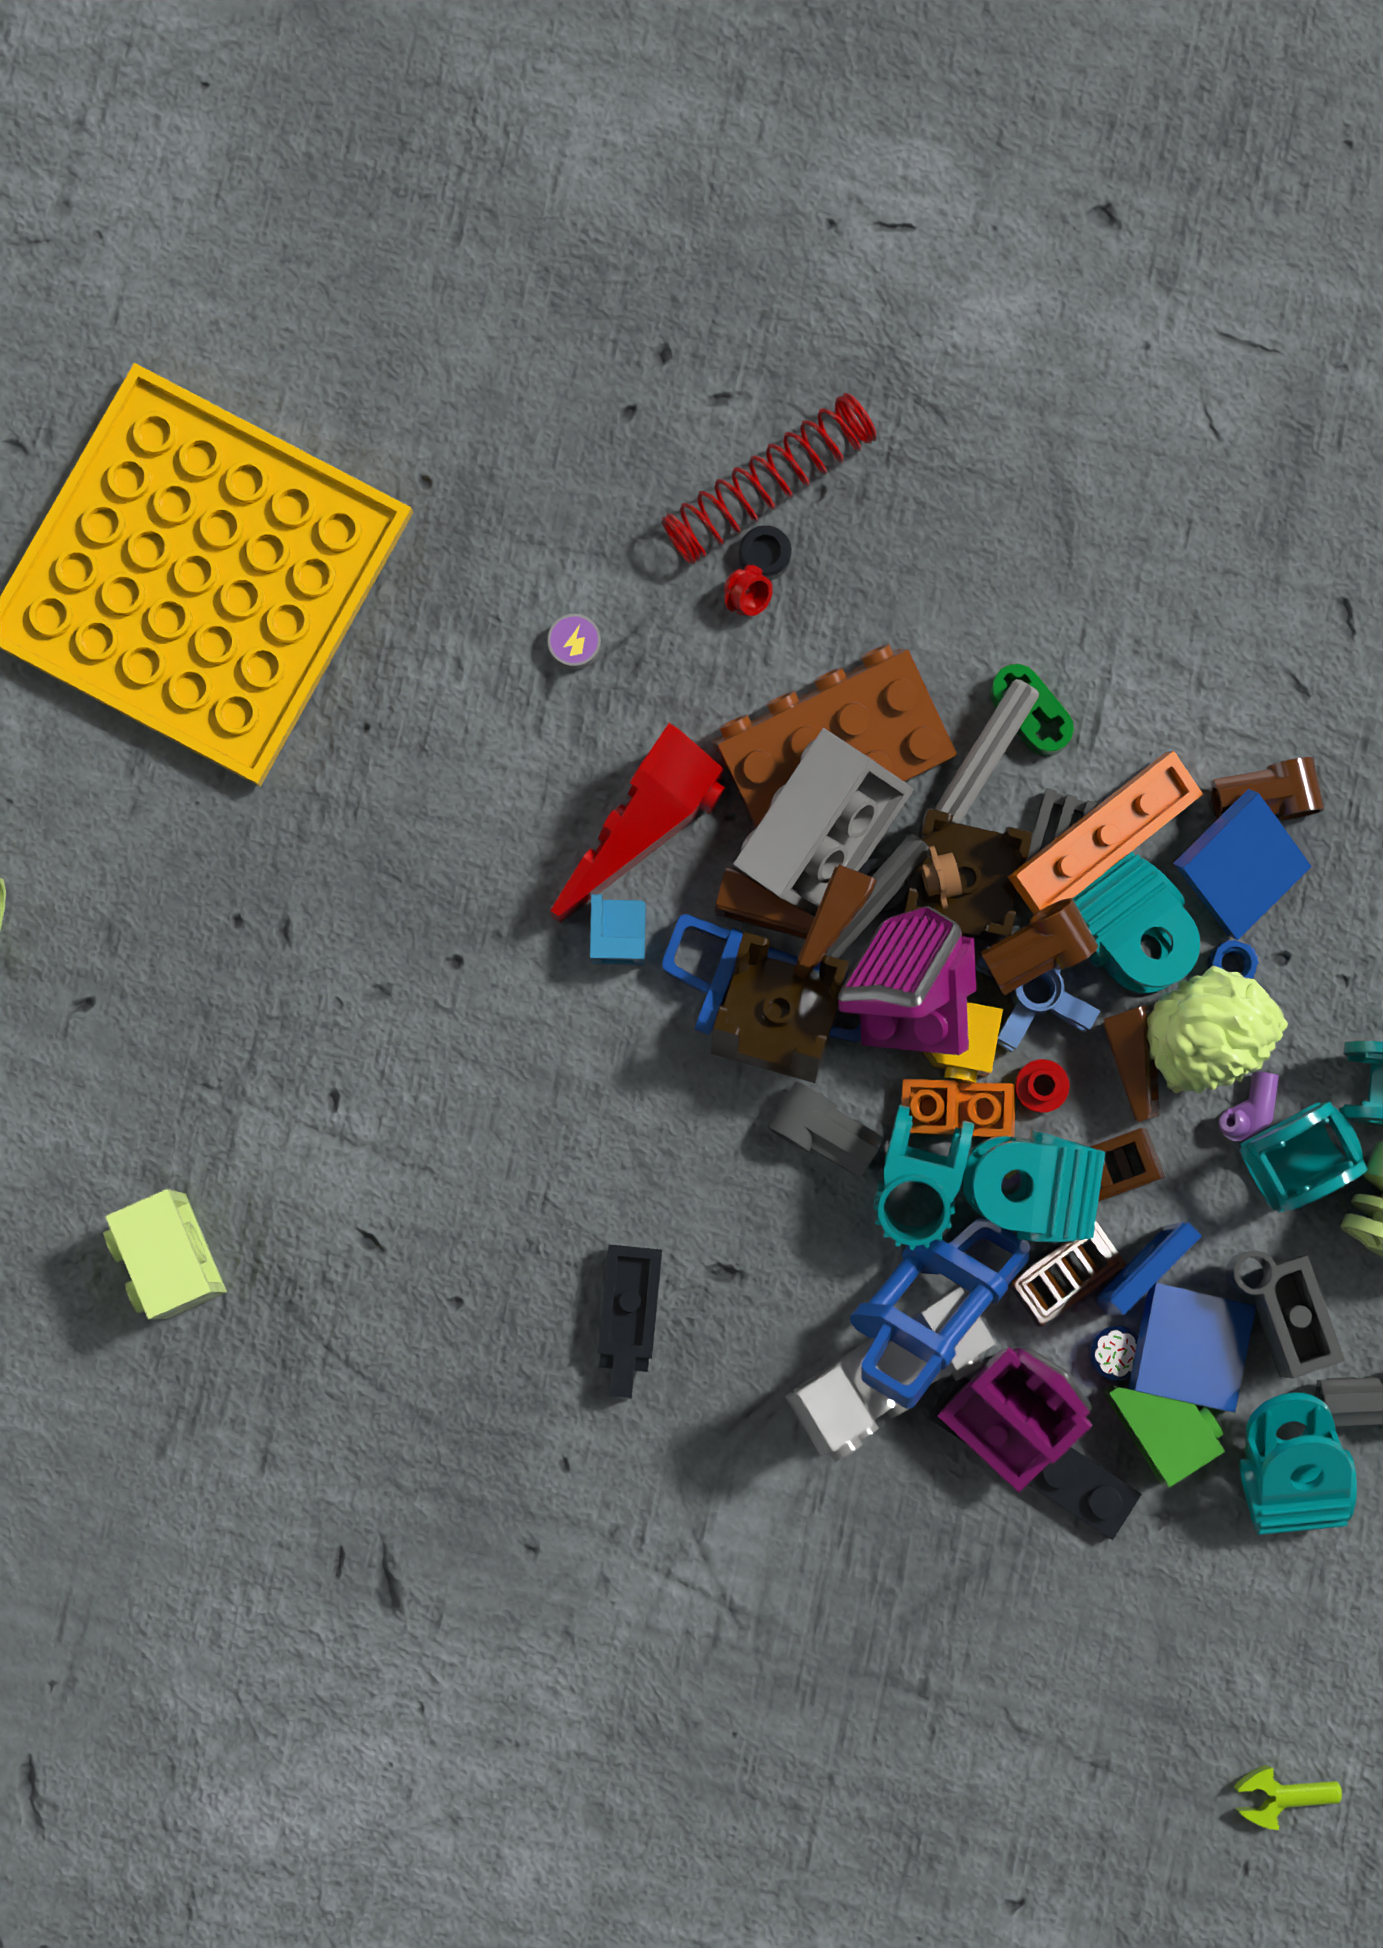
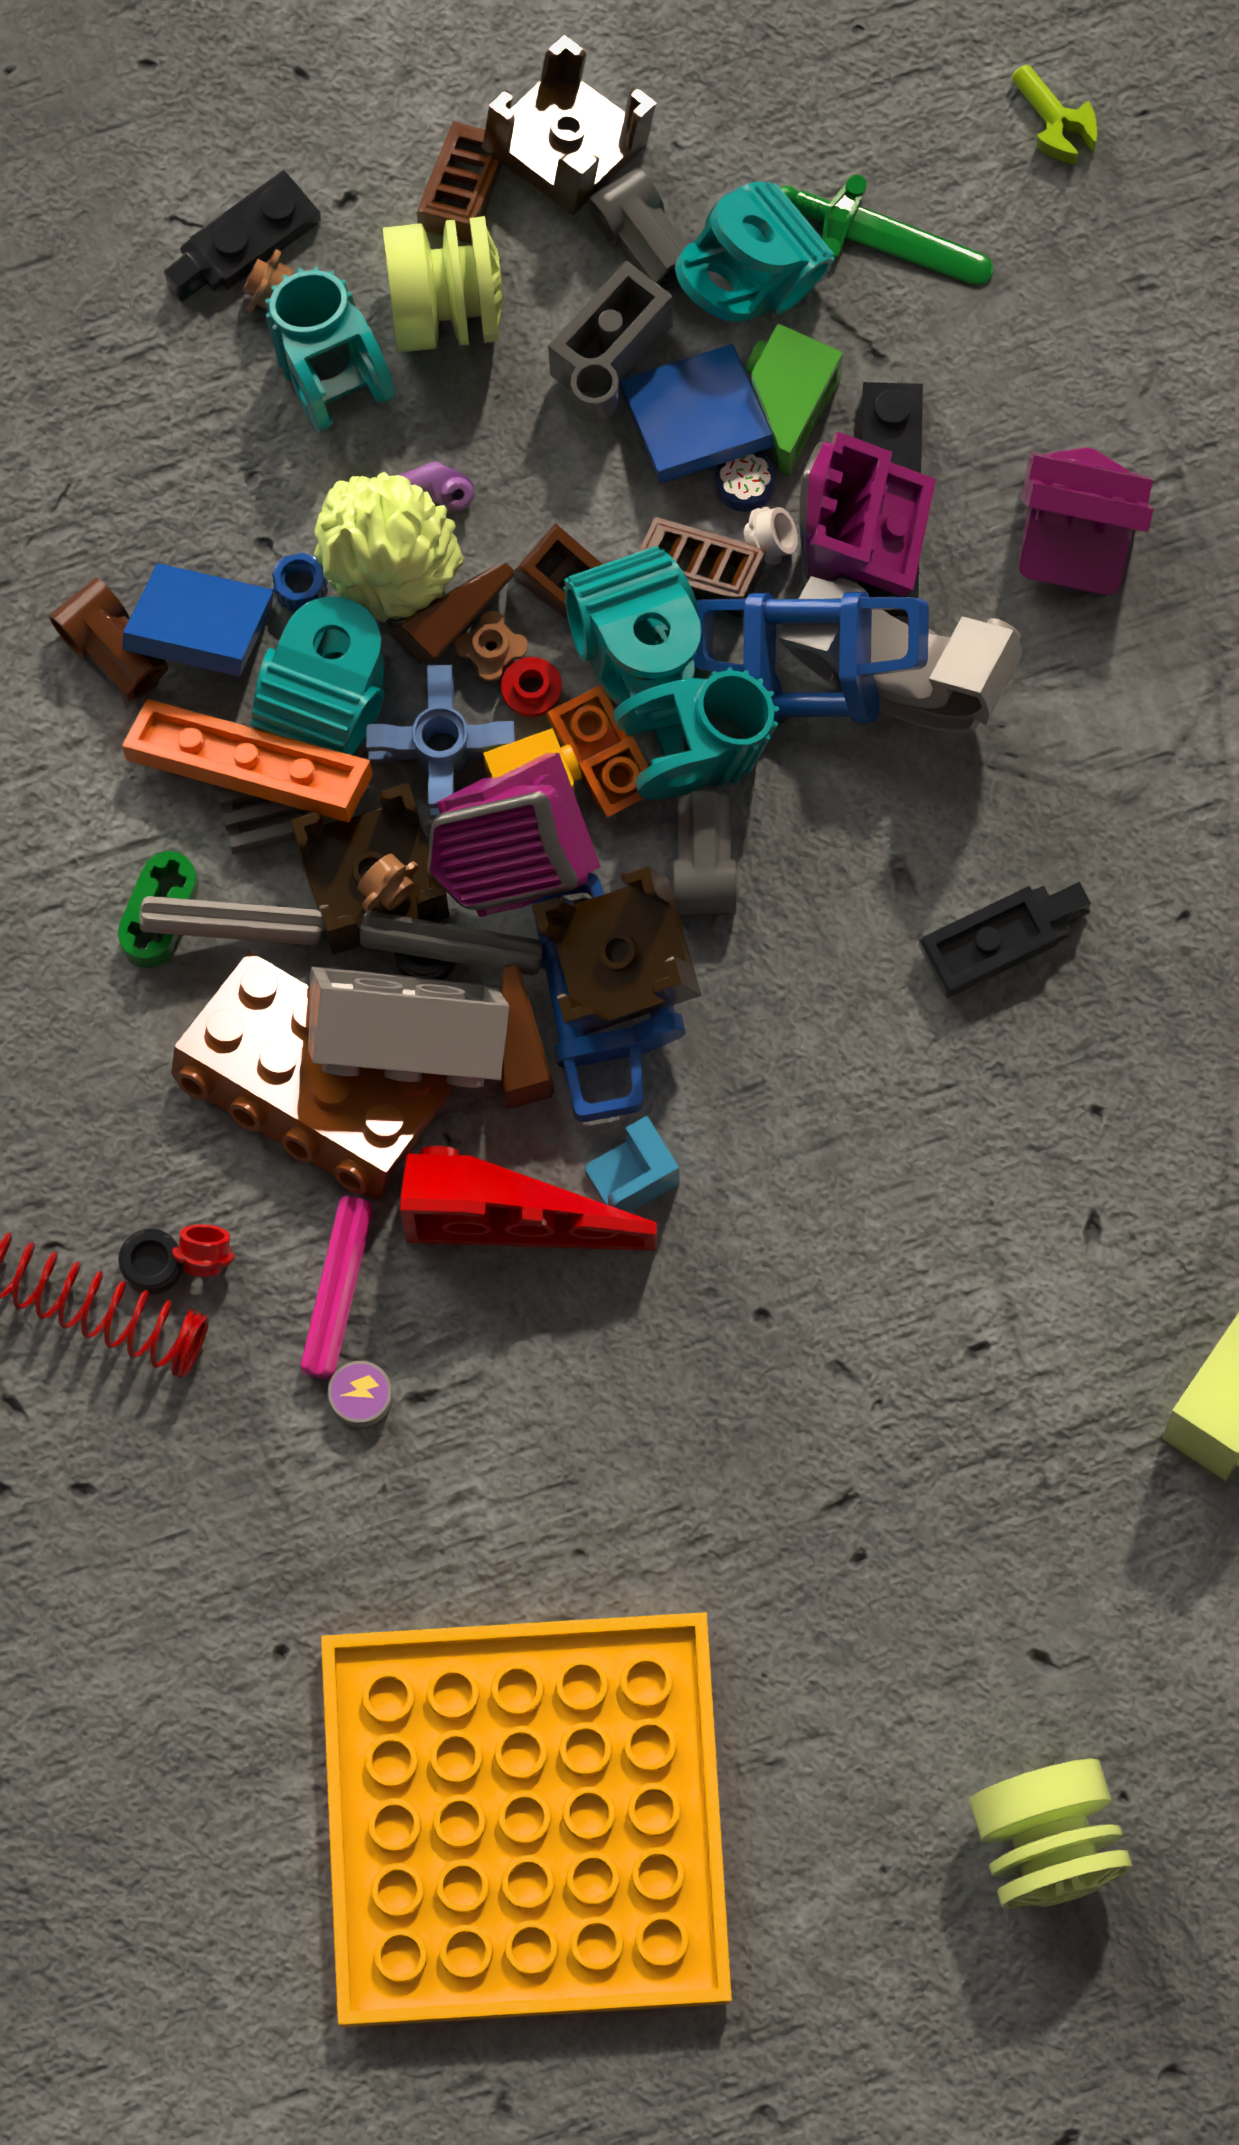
camera: 115 degrees left, 10 degrees down
(662, 670) = (336, 1287): none -> dark pink axle
(840, 904) = (489, 953): reddish brown slope -> none
(926, 1593) = (1081, 518): none -> magenta piece
(1053, 939) = (389, 736): reddish brown piece -> none
(1058, 1341) = (772, 532): none -> white plate
(1083, 1087) = (493, 663): none -> medium nougat plate
(1146, 1268) = (651, 484): blue tile -> none
(1289, 1571) = (847, 219): none -> green sword
(1298, 1160) = (463, 406): teal piece -> none

